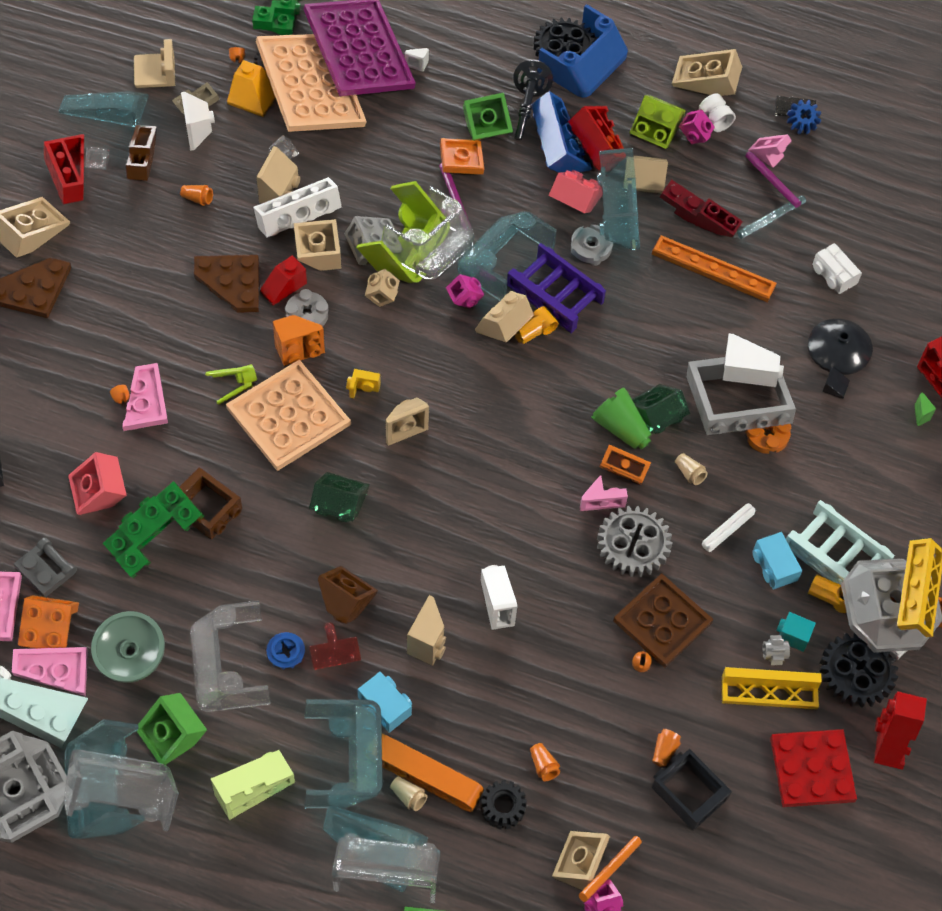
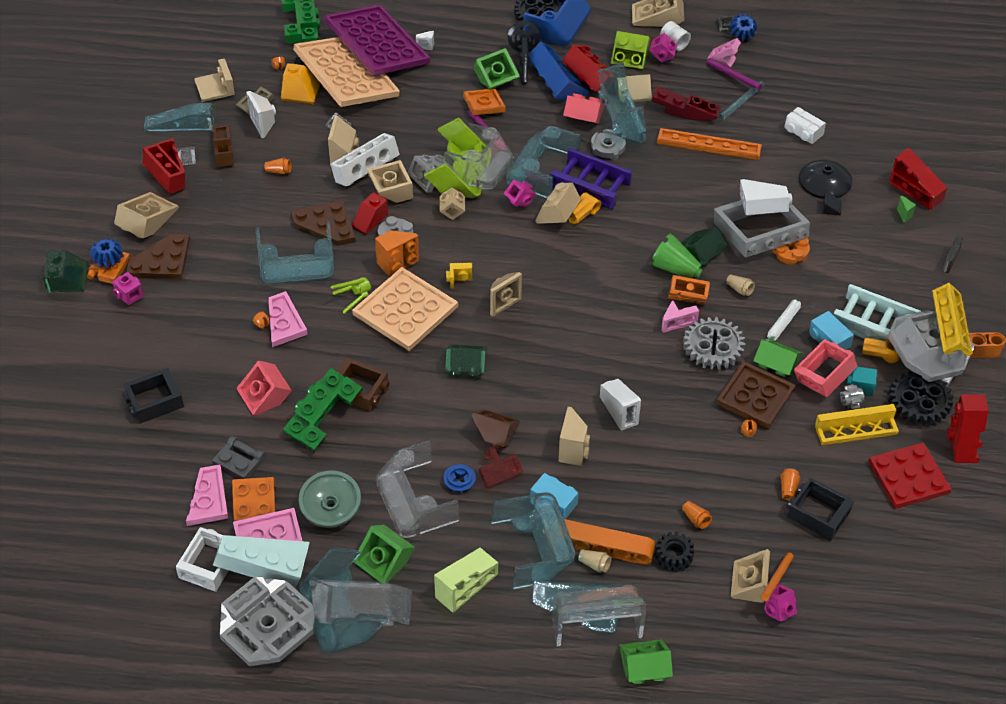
camera: 10 degrees left, 10 degrees down
(179, 332) = (296, 267): none -> clear light blue windscreen
(704, 576) = (778, 357): none -> bright green slope
(744, 593) = (825, 386): none -> coral window

